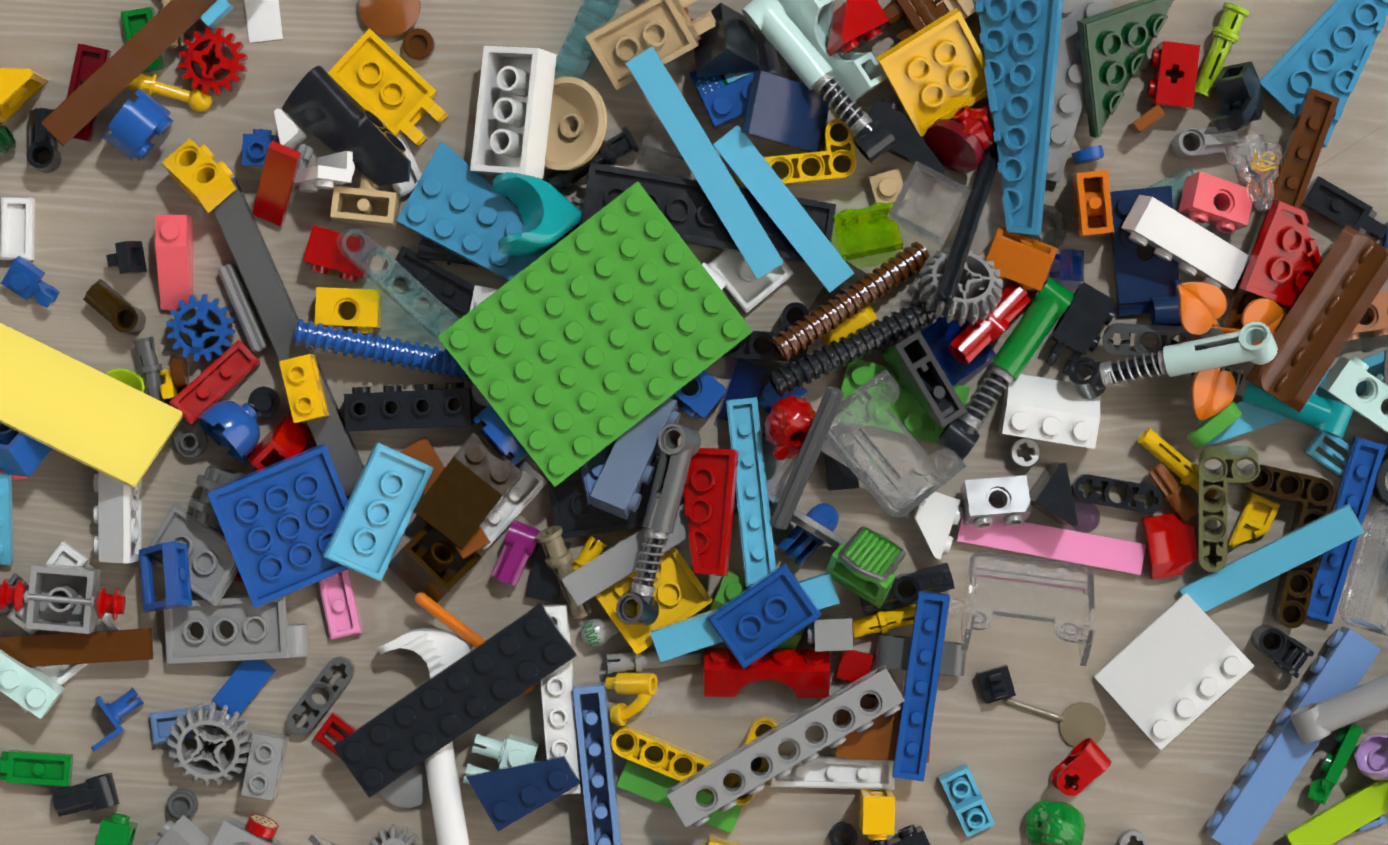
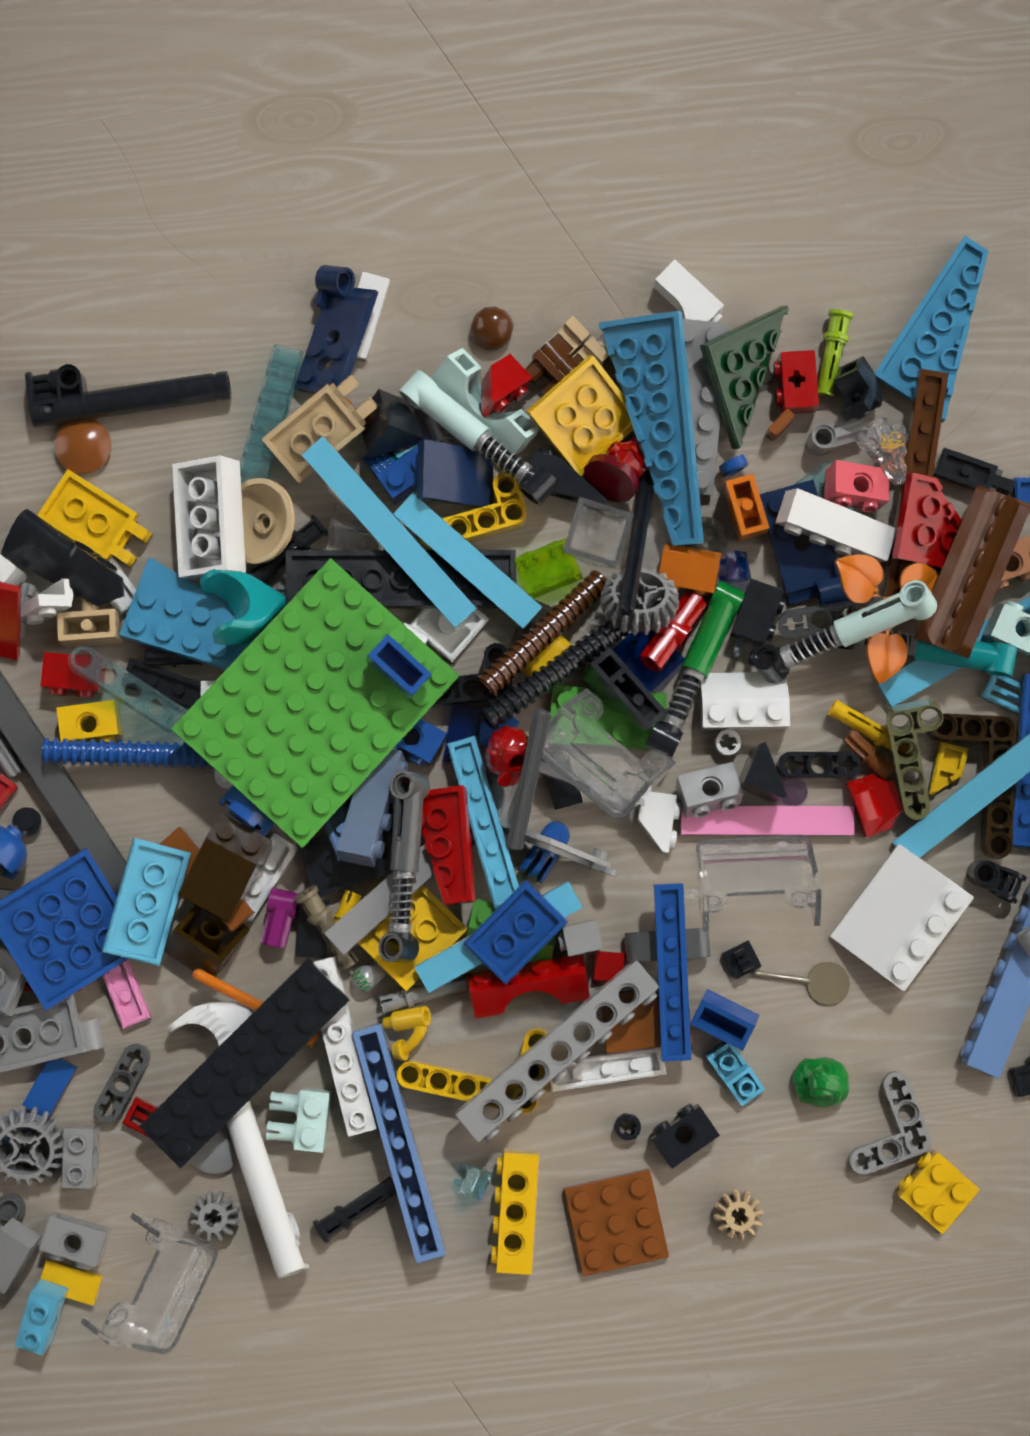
camera: 10 degrees left, 5 degrees down
(261, 826) = (87, 1215): red tile -> none
(280, 443) = (50, 852): red slope -> none
(304, 388) = (59, 800): yellow brick -> none
(408, 408) = (159, 804): black brick -> none
(418, 44) = (115, 476): reddish brown tile -> none
(521, 789) = (319, 1135): dark blue wing -> none
(653, 787) = (442, 1111): bright green tile -> none
(691, 314) = (398, 666): none -> blue piece
(866, 565) = (601, 869): bright green piece -> none
(876, 813) = (654, 1098): yellow brick -> none
(883, 621) = (627, 920): yellow pin -> none
(886, 186) = (557, 525): tan plate -> none
(931, 579) = (624, 893): black piece -> none
(966, 744) = (724, 1019): none -> blue piece
(1083, 766) = (836, 1020): red piece -> none
(1213, 426) = (894, 686): bright green beam -> none

